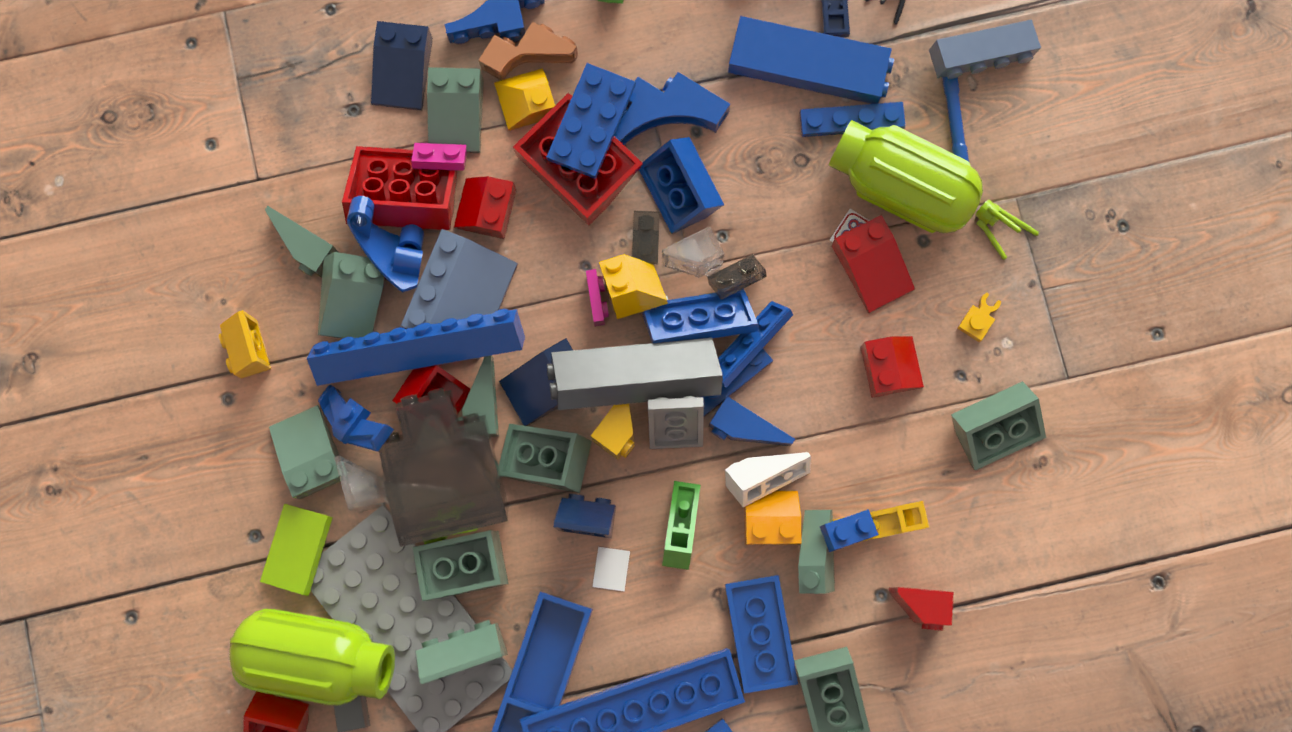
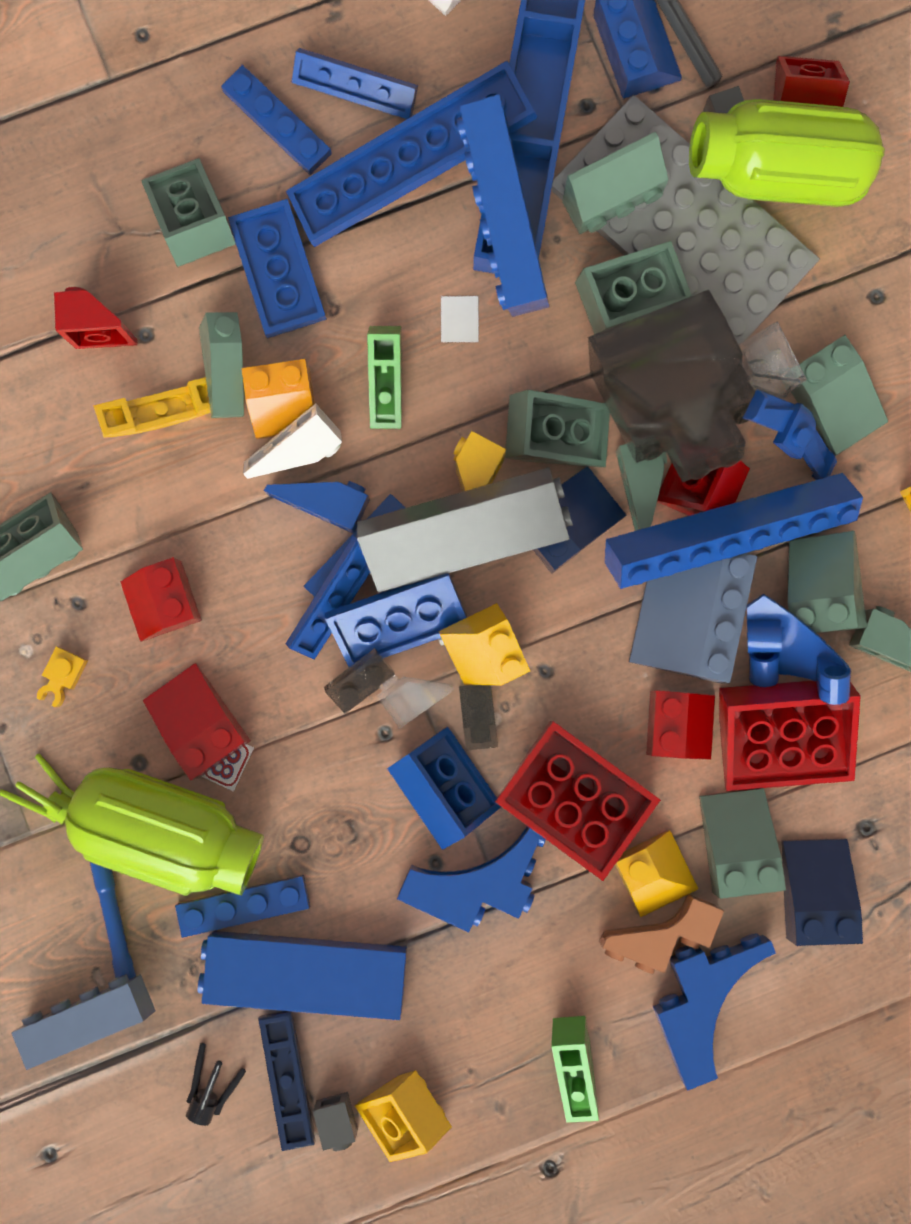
camera: 170 degrees right, 5 degrees up
(296, 549) = (826, 283): lime tile -> none
(439, 156) = (749, 779): dark pink plate -> none
(559, 634) = (503, 202): none -> blue brick
(585, 516) = (497, 358): dark blue slope -> none
(591, 120) = (568, 847): blue plate -> none
(599, 308) = (521, 617): dark pink plate -> none
(676, 422) = (407, 484): light grey plate -> none
(849, 530) = (187, 392): blue plate -> none

